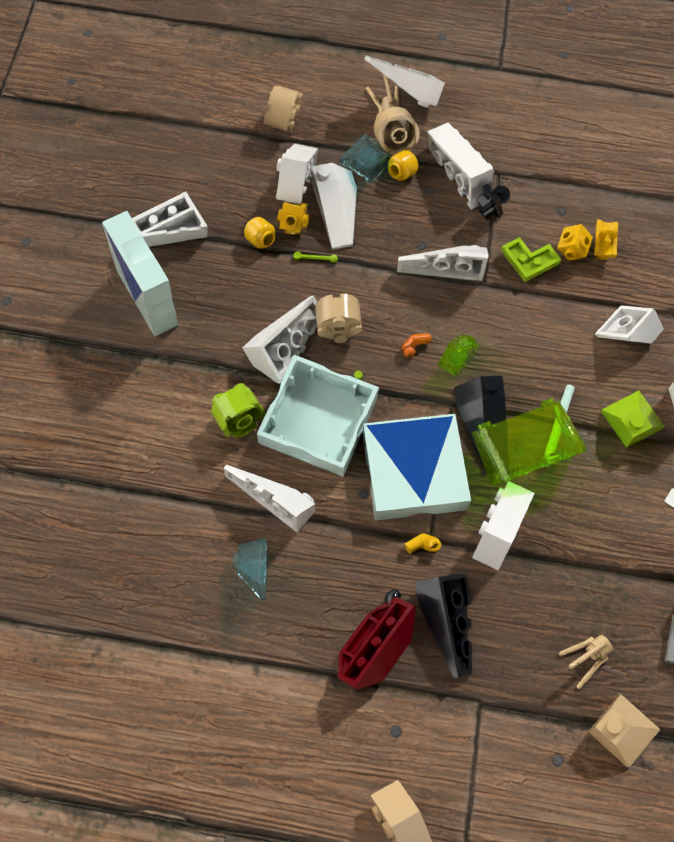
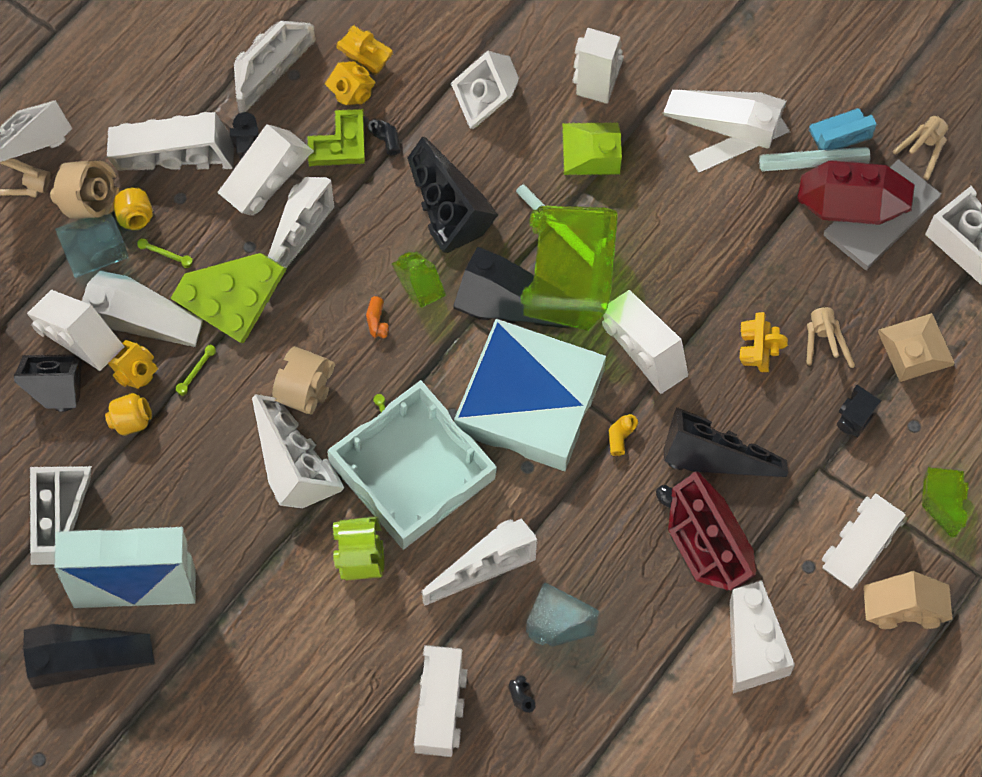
camera: 60 degrees left, 0 degrees up
(84, 283) = (73, 653): none -> black wedge
(153, 517) = (440, 701): none -> white wedge
(187, 568) = (520, 699): none -> black arm
(256, 178) = (51, 379): none -> black slope
(311, 716) = (757, 639): none -> white wedge
(377, 248) = (231, 293): none -> lime plate
(387, 215) = (186, 261): none -> lime hinge
(435, 762) = (863, 541): none -> white wedge
(478, 222) = (264, 169): none -> white wedge
(509, 810) = (944, 497): none -> clear neon green slope
(532, 347) = (453, 203): none -> black wedge
(539, 708) = (858, 411): none -> black brick
(553, 611) = (766, 342): none -> yellow hips
(555, 284) = (386, 133): none -> black arm
(558, 187) = (269, 59): none -> white wedge

